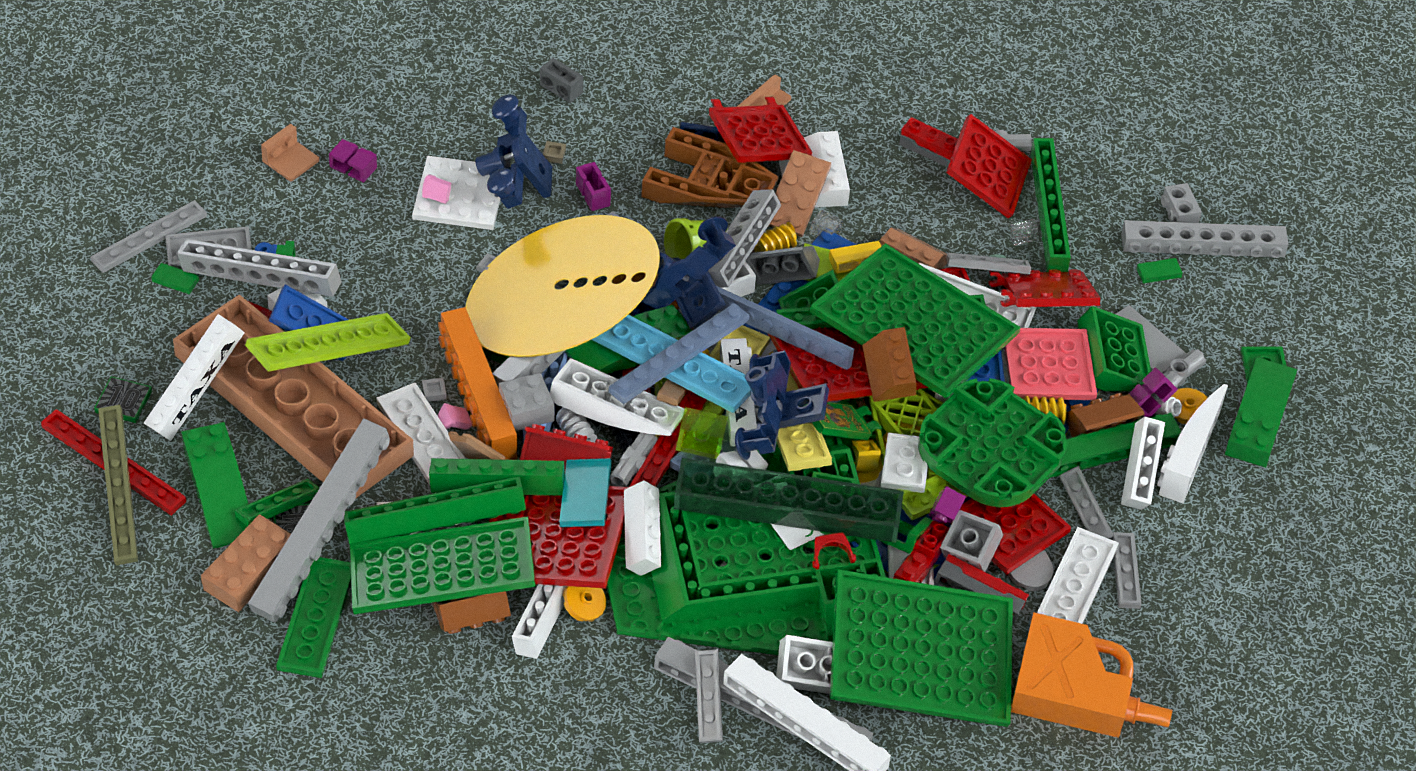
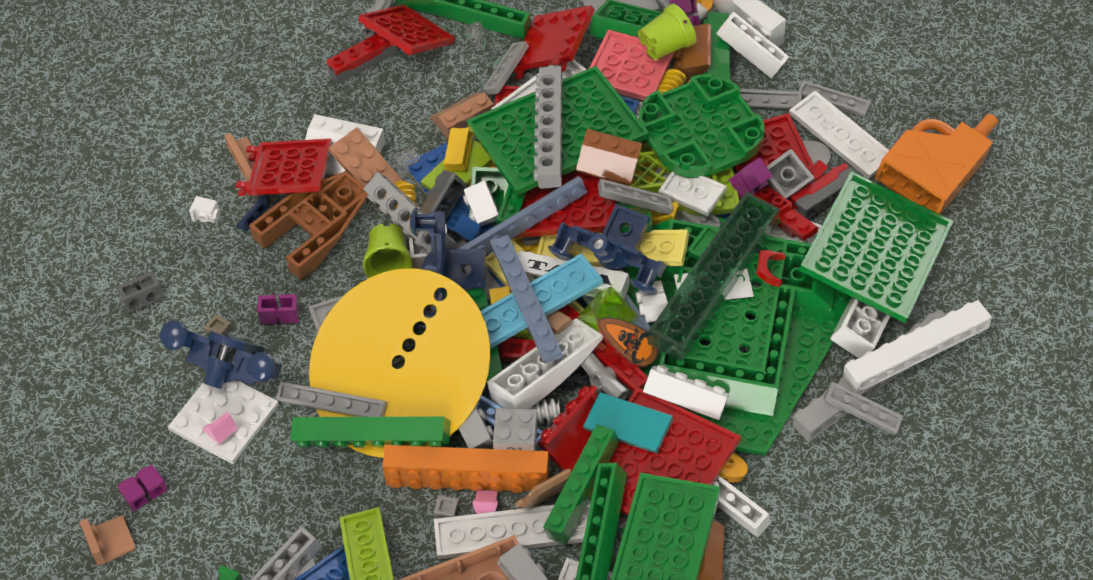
camera: 60 degrees left, 5 degrees up
(482, 298) = (370, 431): none -> green brick
(506, 260) = (330, 401): none -> light grey tile
(675, 444) = (628, 341): none -> shield
(682, 94) = (204, 210): none -> white brick
(763, 291) = (463, 227): none -> blue slope
(796, 292) = (481, 203): none -> white brick
(858, 407) = (635, 196): none -> light grey plate
(905, 306) = (549, 127): none -> light grey brick
(1000, 570) = (818, 169): none -> red piece
(1096, 371) = (667, 33): none -> lime piece

